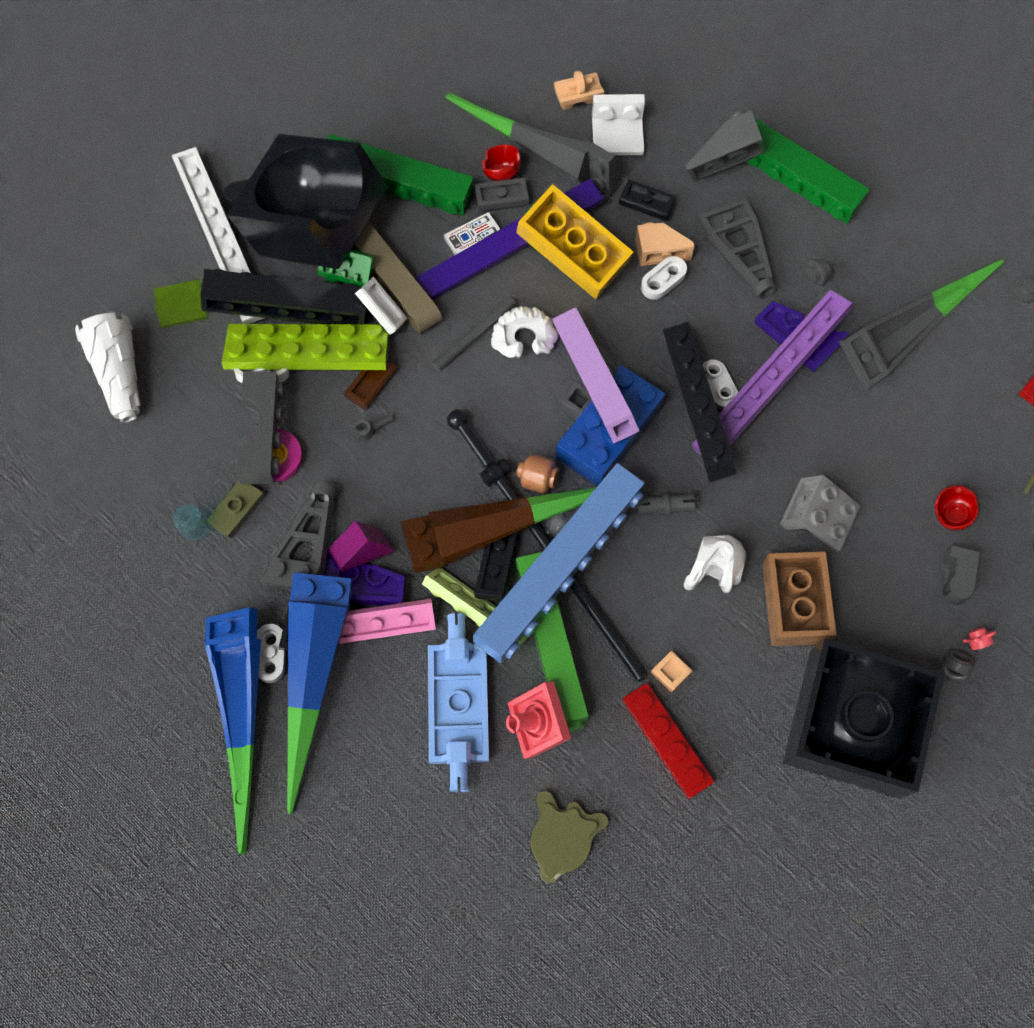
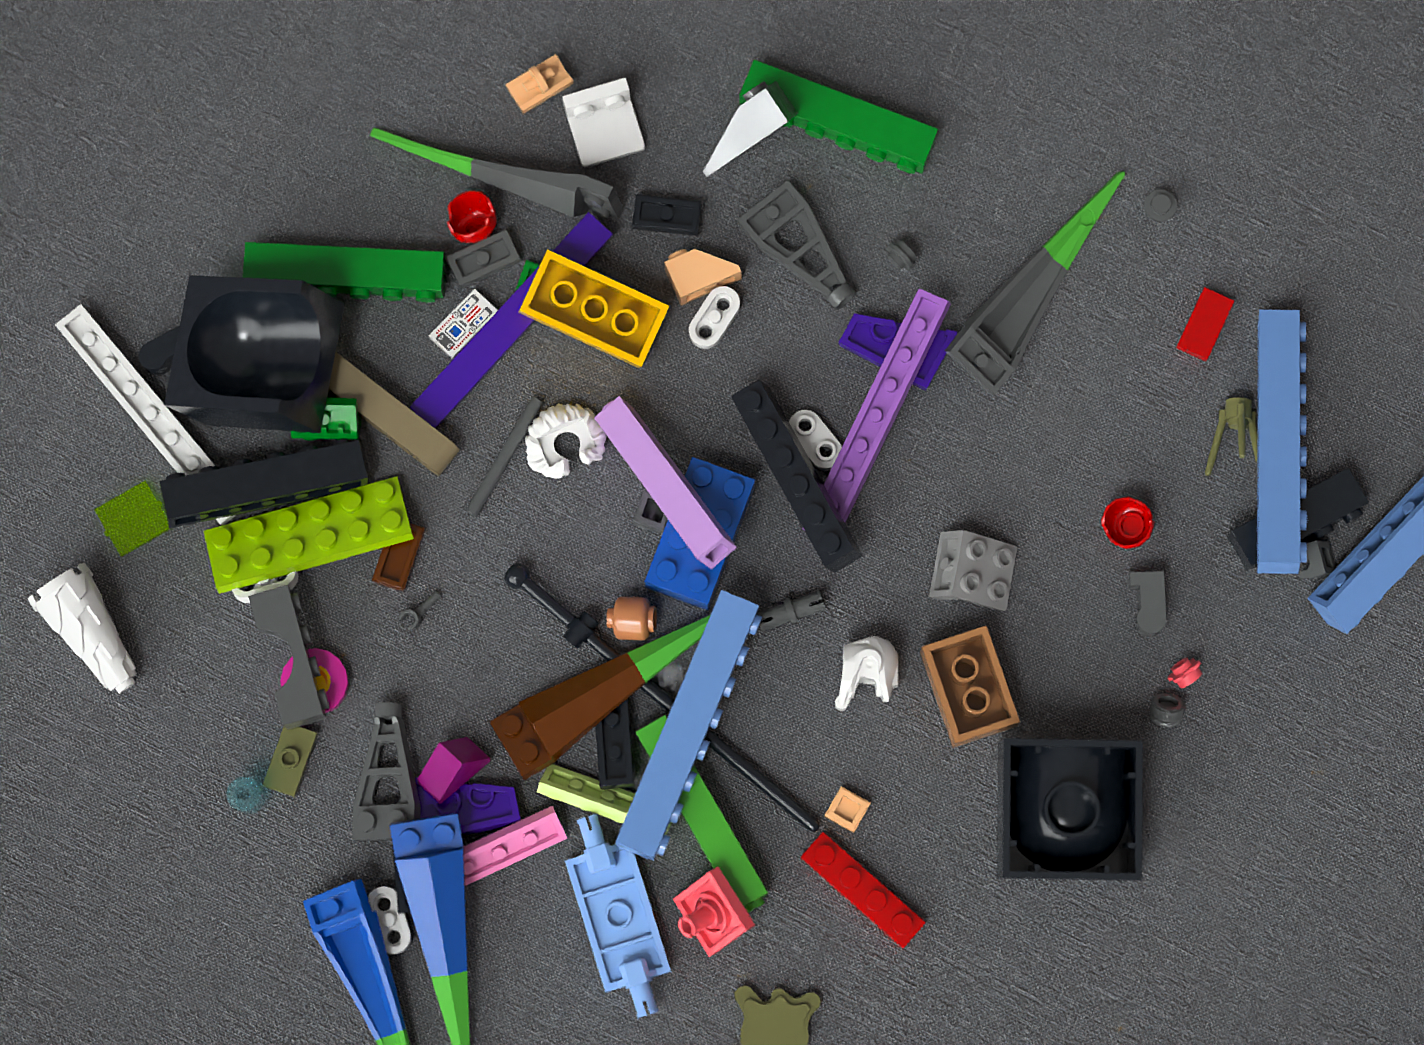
camera: 10 degrees left, 10 degrees up
(381, 306) = (383, 458): white tile -> none

